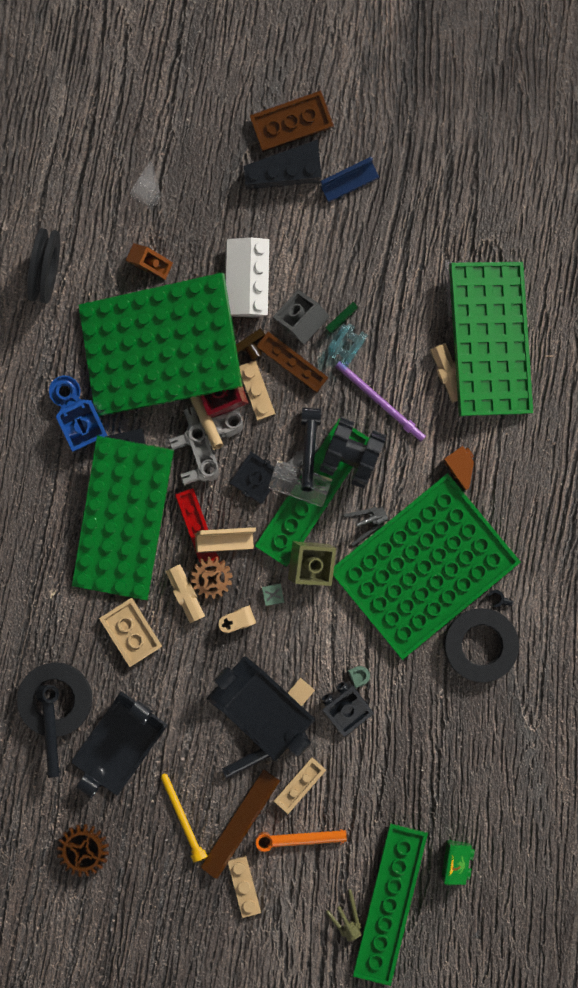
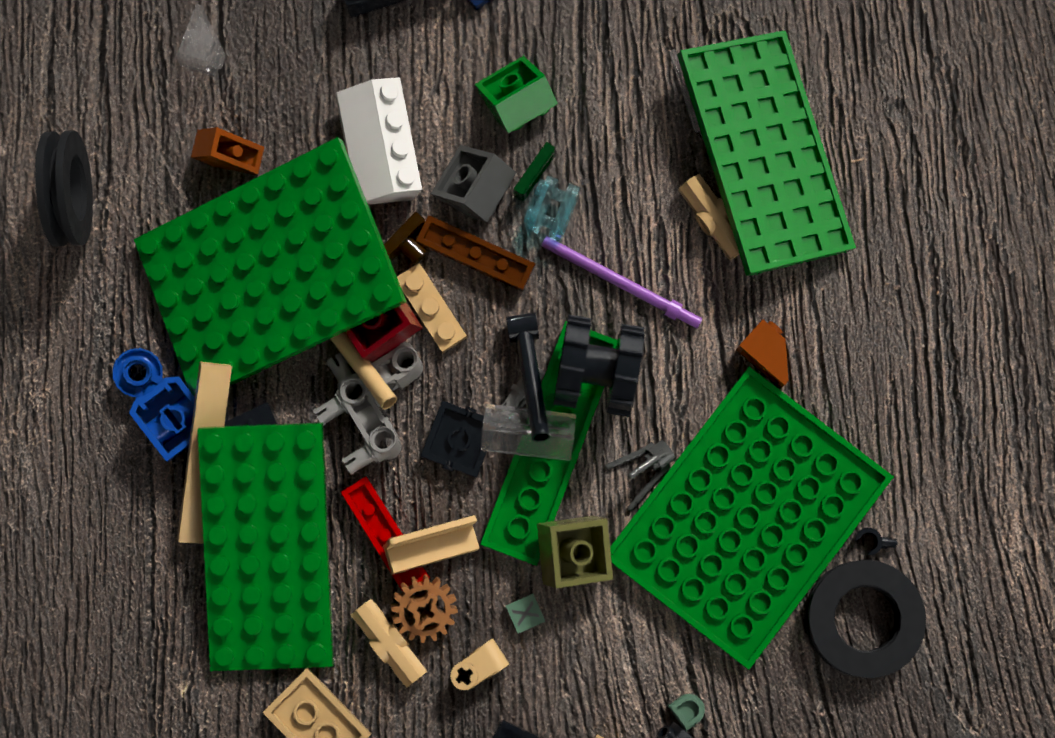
camera: 10 degrees left, 5 degrees down
(106, 427) = (208, 411): none -> tan tile
(341, 265) = (517, 94): none -> green slope

